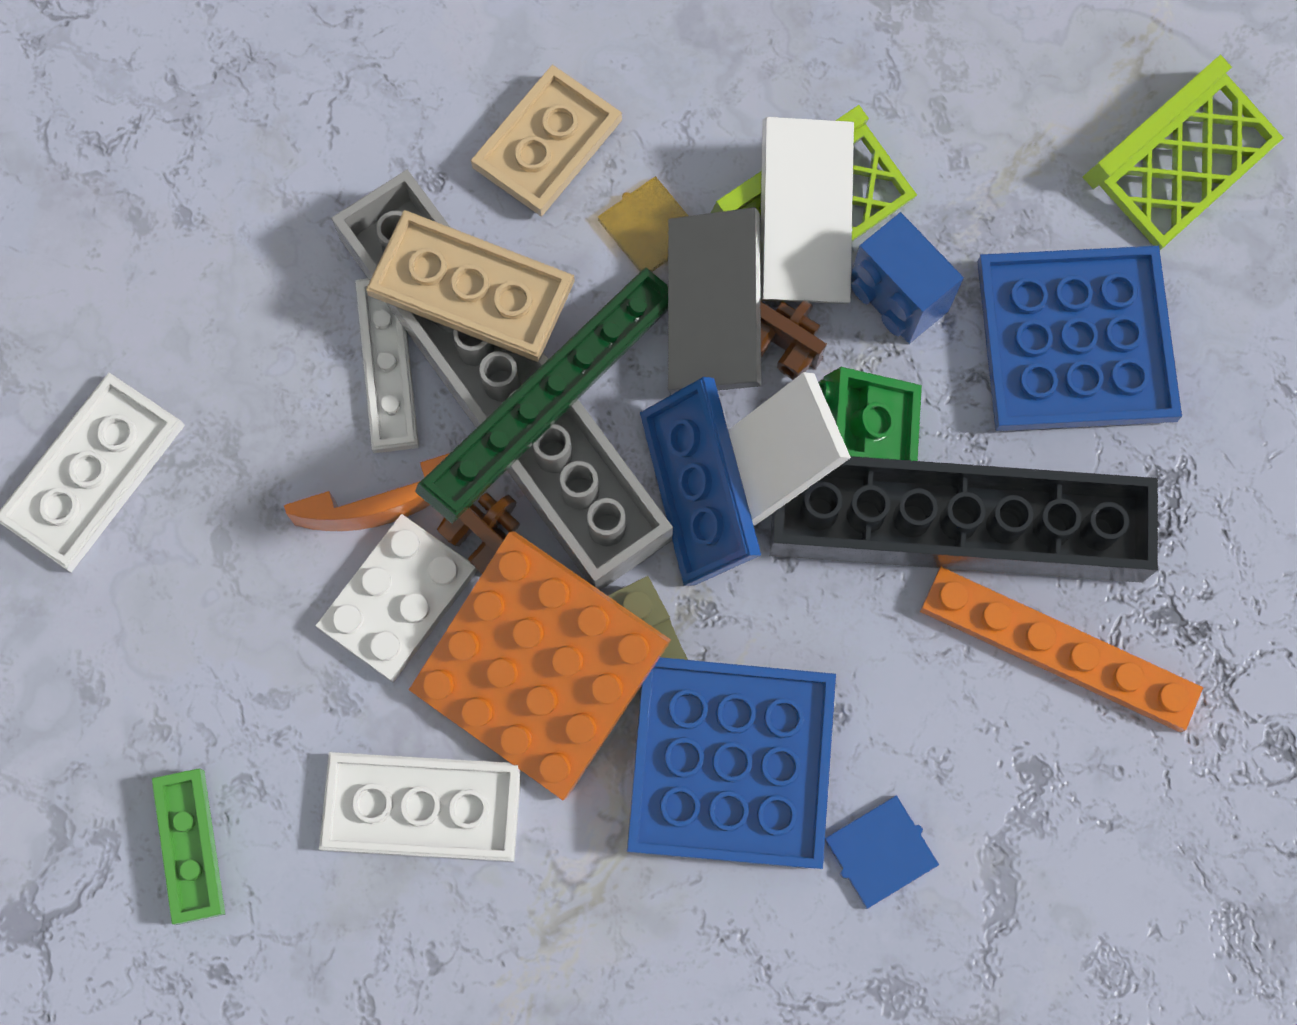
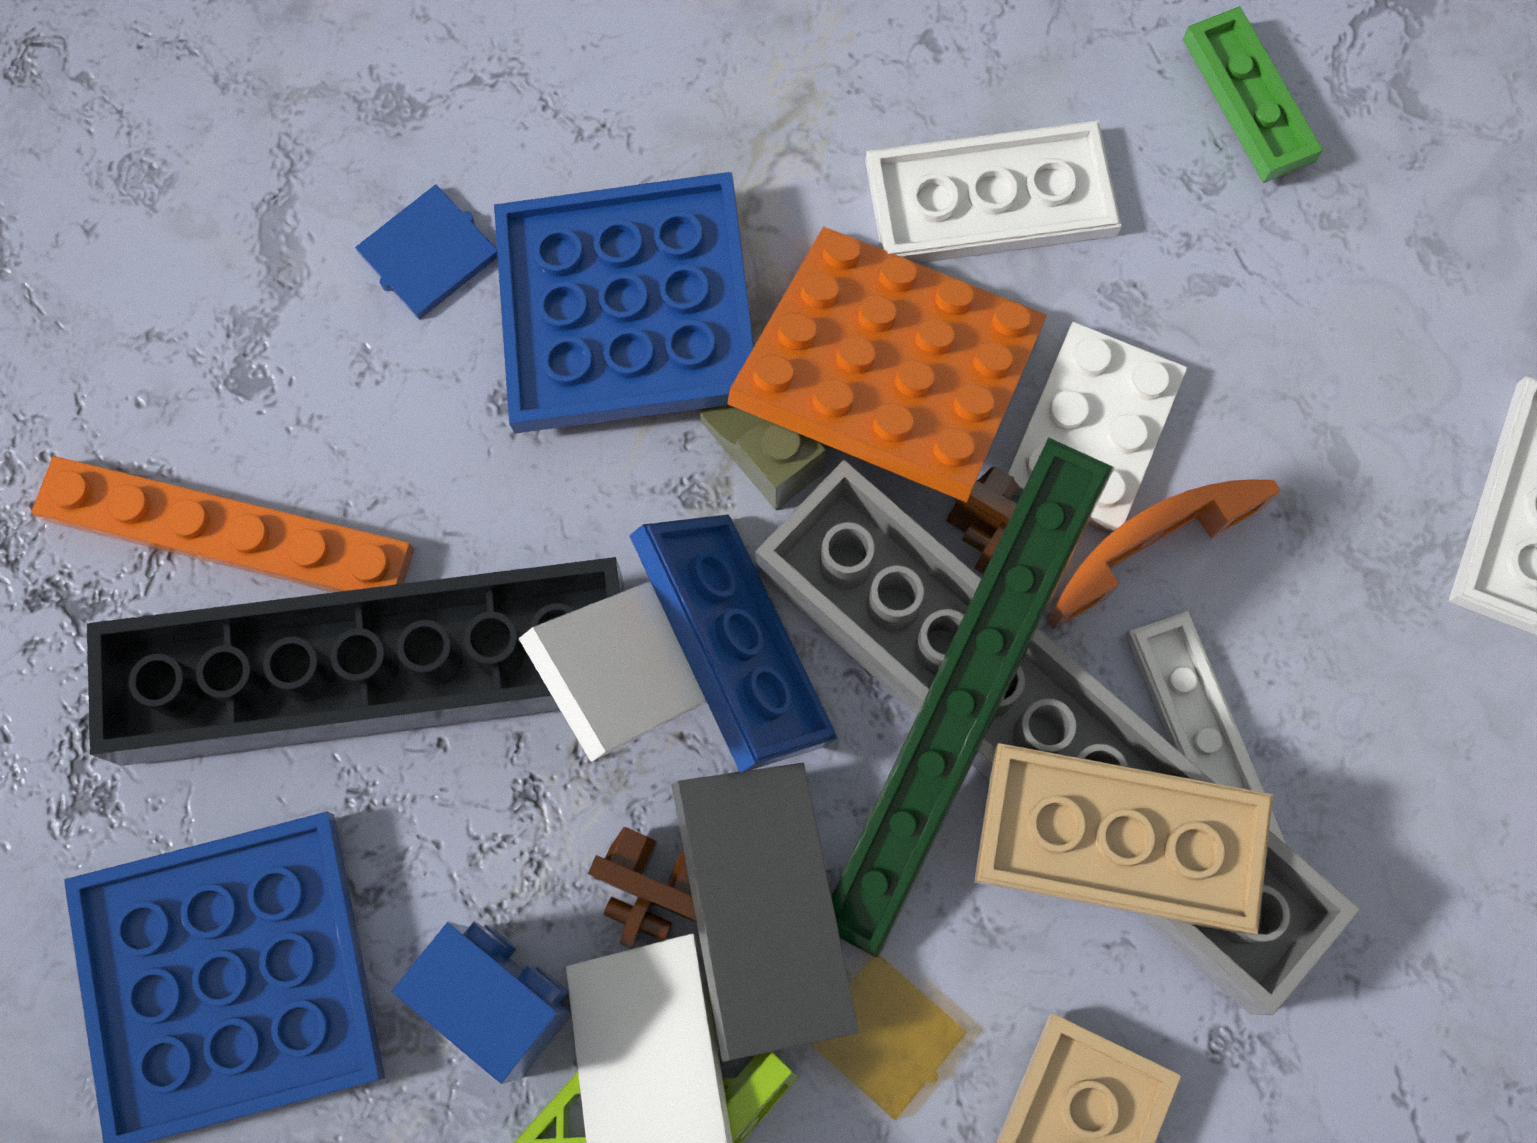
camera: 170 degrees right, 0 degrees up
(874, 413) = (512, 780): green plate -> none

